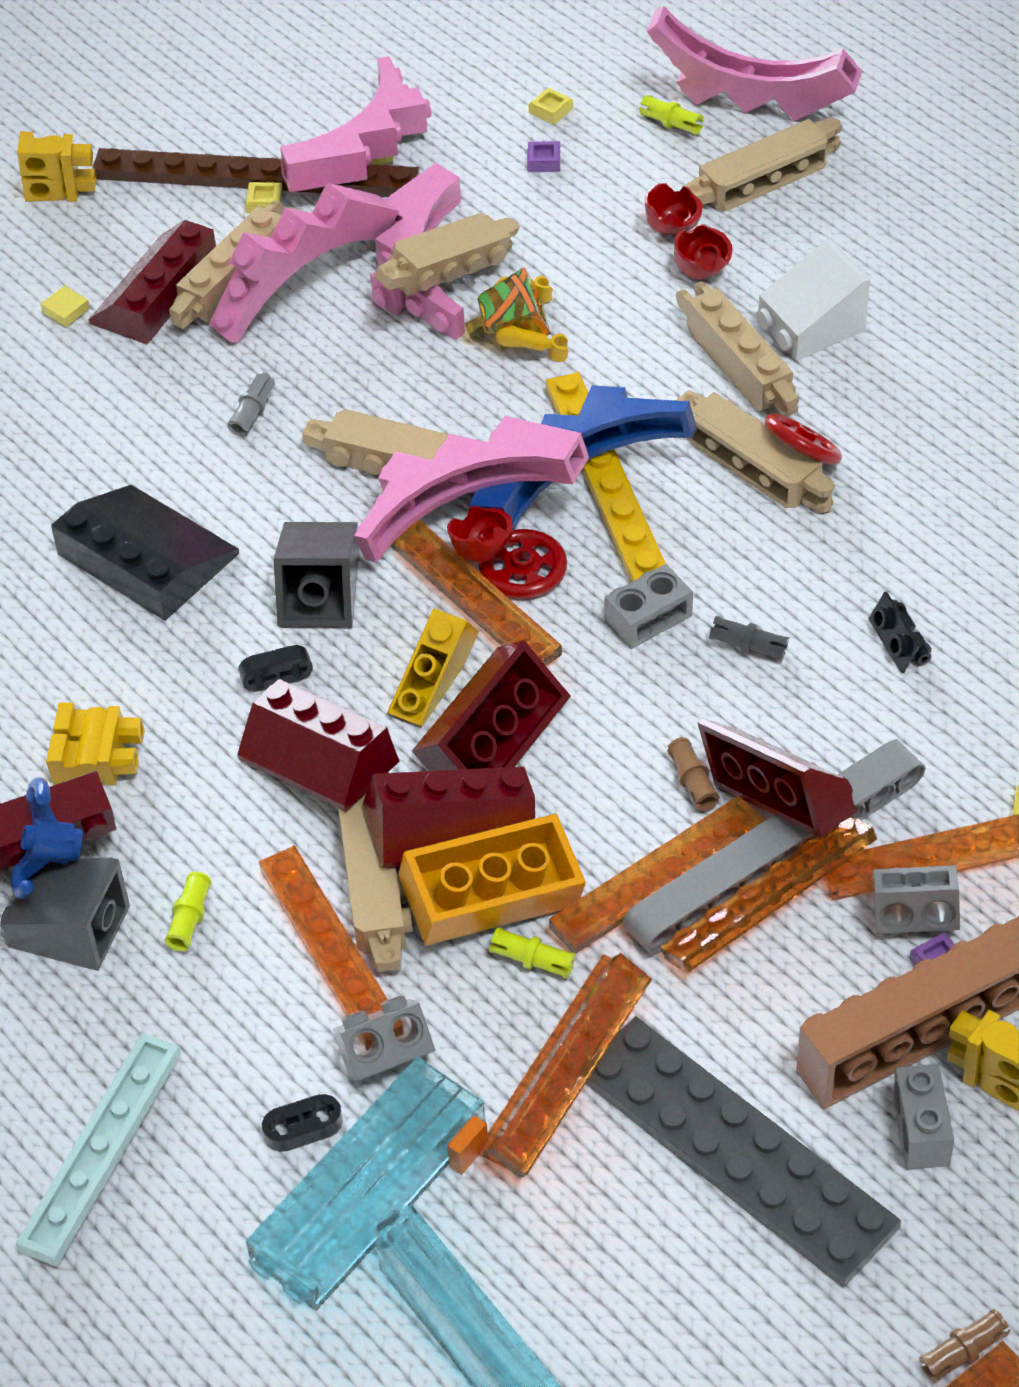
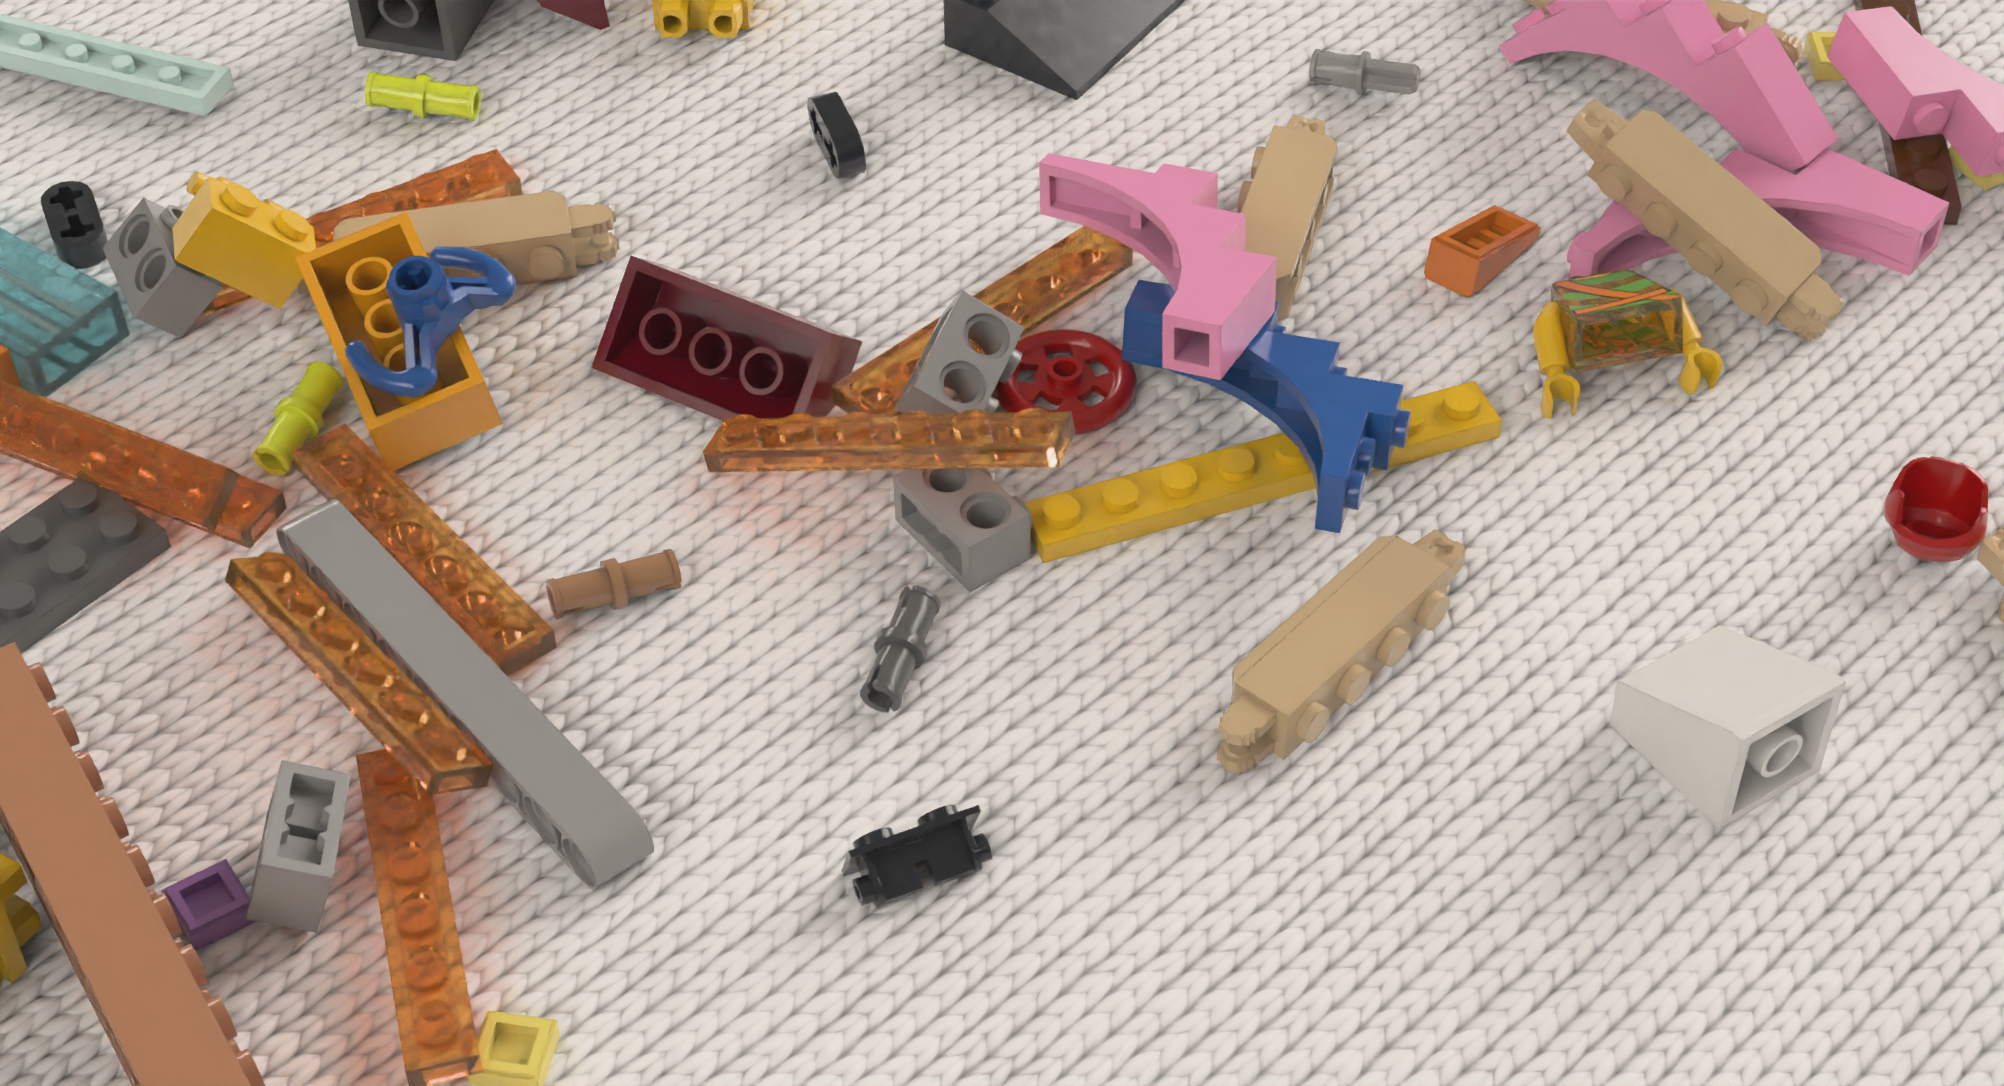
camera: 85 degrees right, 5 degrees down
(315, 744) = (672, 166): dark red slope -> none
(316, 574) = (998, 136): dark grey slope -> none
(389, 968) = (242, 239): none -> yellow brick
(428, 370) = (1478, 250): none -> orange slope
(433, 666) = (849, 287): yellow slope -> none
(443, 805) = (540, 343): dark red slope -> none
(480, 534) = (1077, 295): red hair -> none
(513, 830) = (431, 311): none -> blue piece
(535, 594) = (954, 364): none -> light grey brick
(601, 629) = (891, 441): none -> clear orange plate
(702, 252) = (1831, 552): red hair -> none
(738, 349) = (1586, 616): tan hinge -> none
(776, 779) = (534, 626): dark red slope -> none
(803, 439) = (1400, 689): red plate -> none

